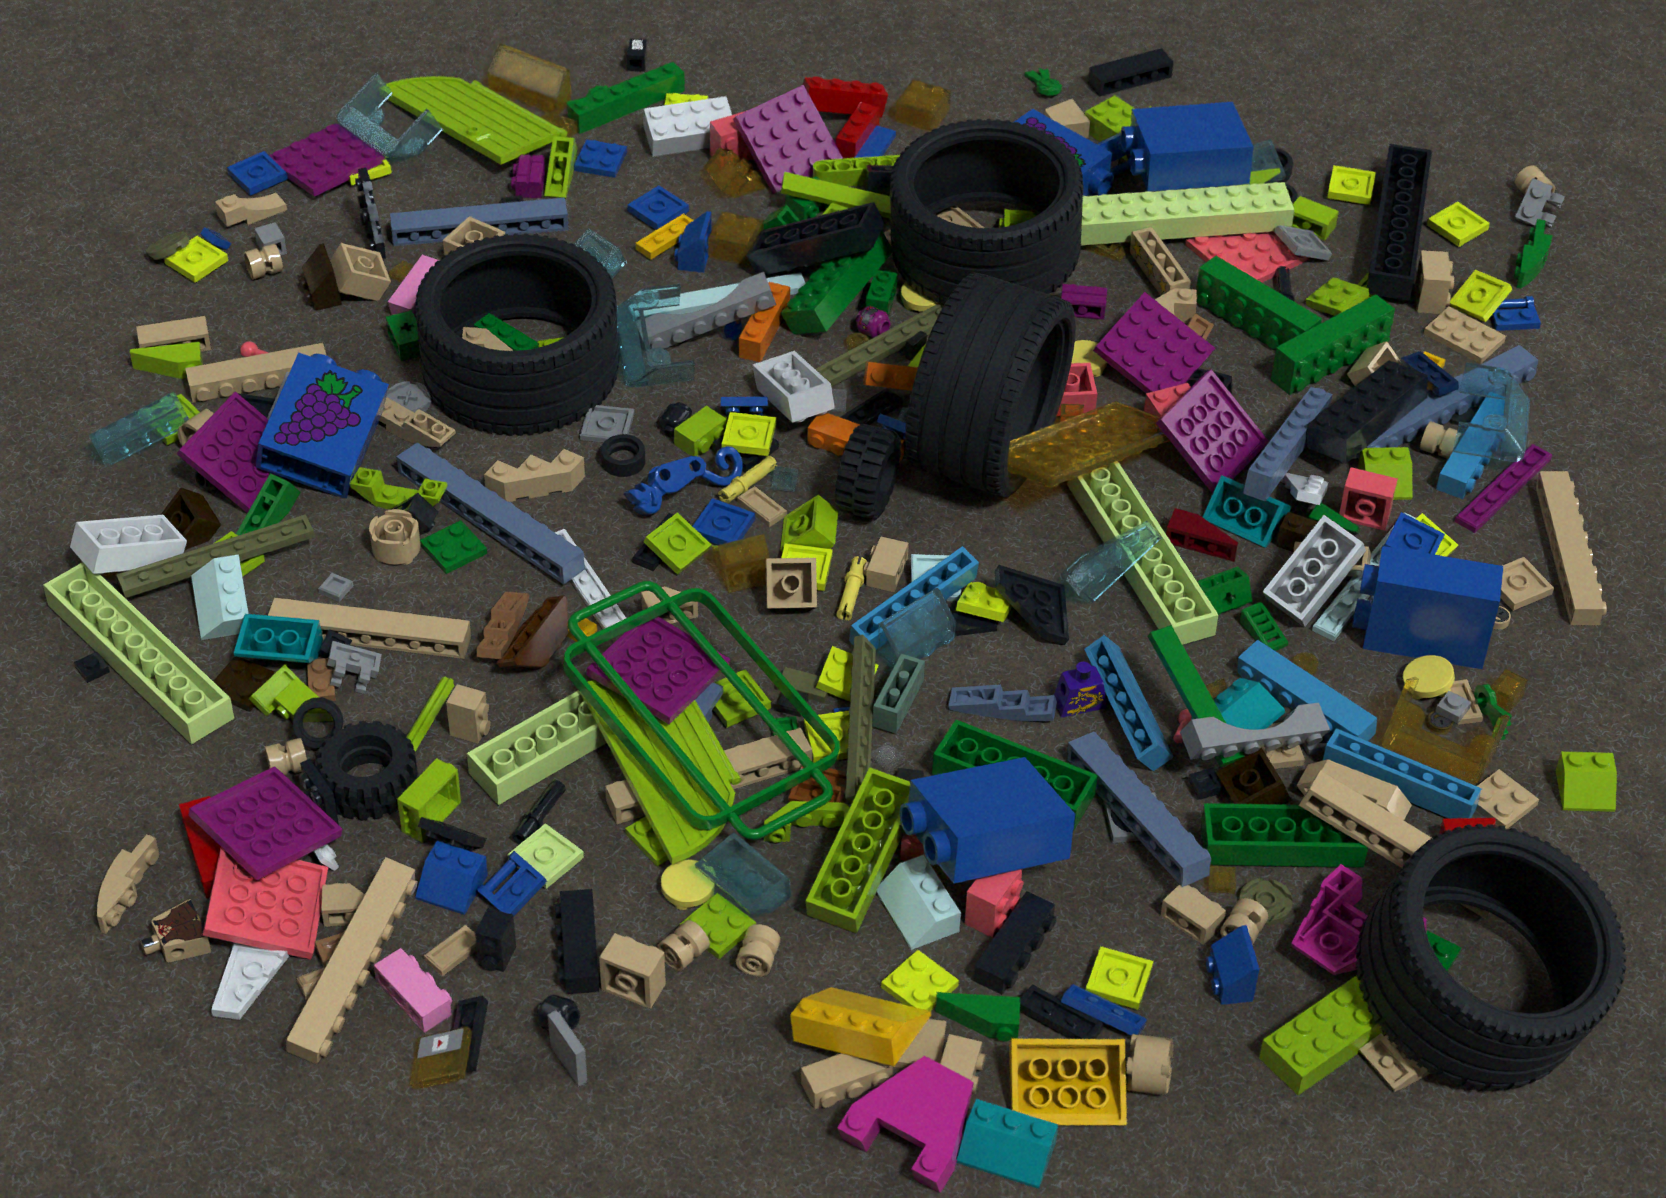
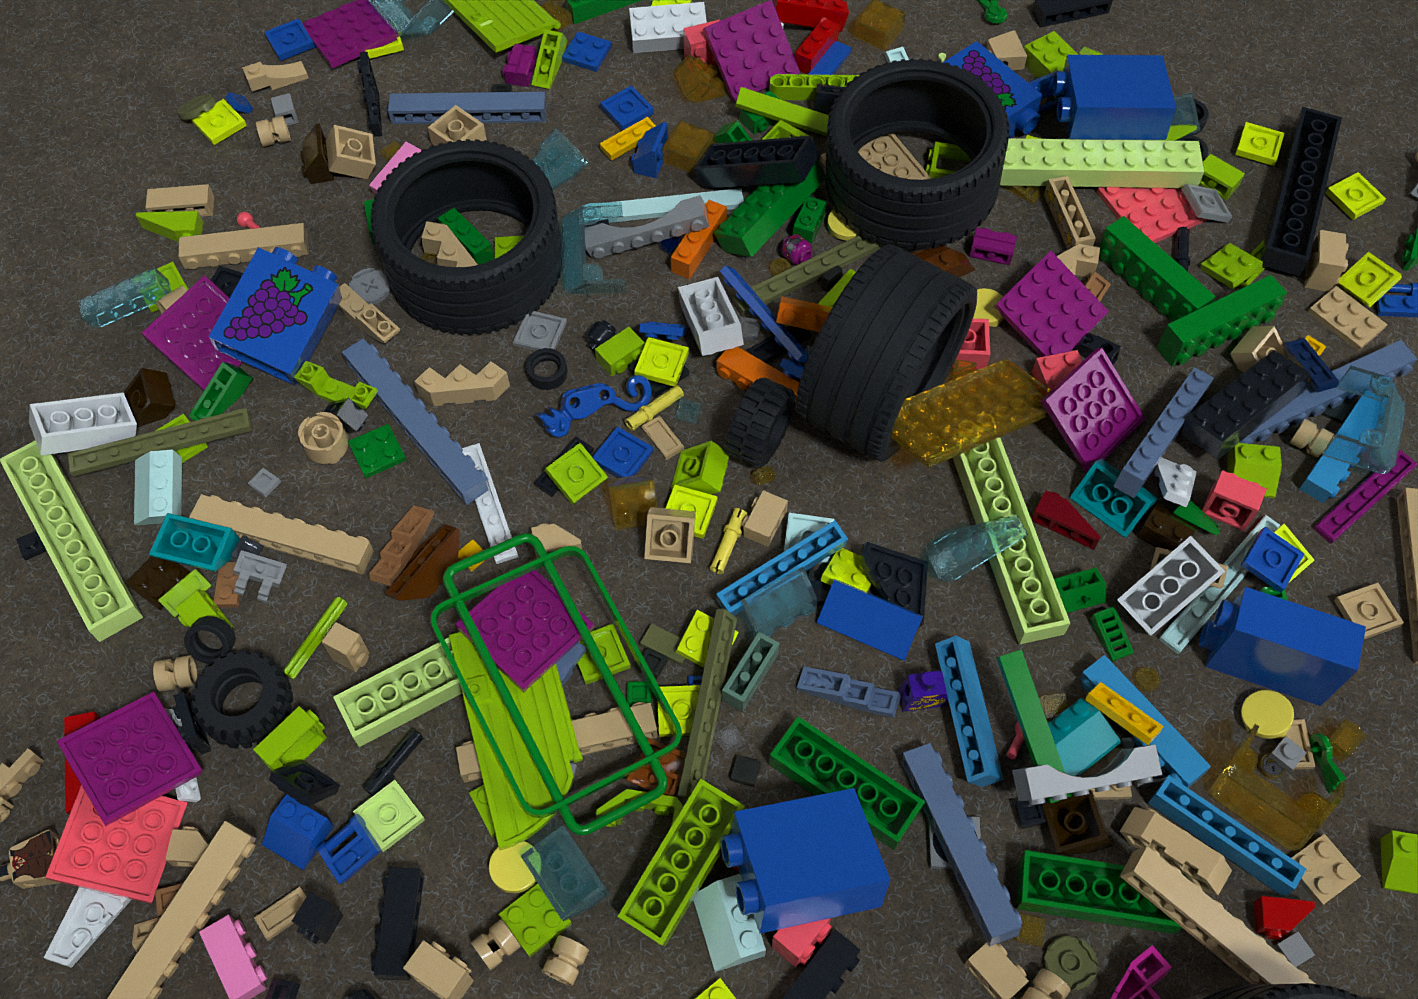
camera: 10 degrees right, 15 degrees up
(843, 377) = (759, 308): none -> blue plate
(878, 527) = (764, 475): none -> clear yellow tile
(1013, 637) = (869, 619): none -> blue tile
(1284, 682) = (1124, 713): none -> yellow plate

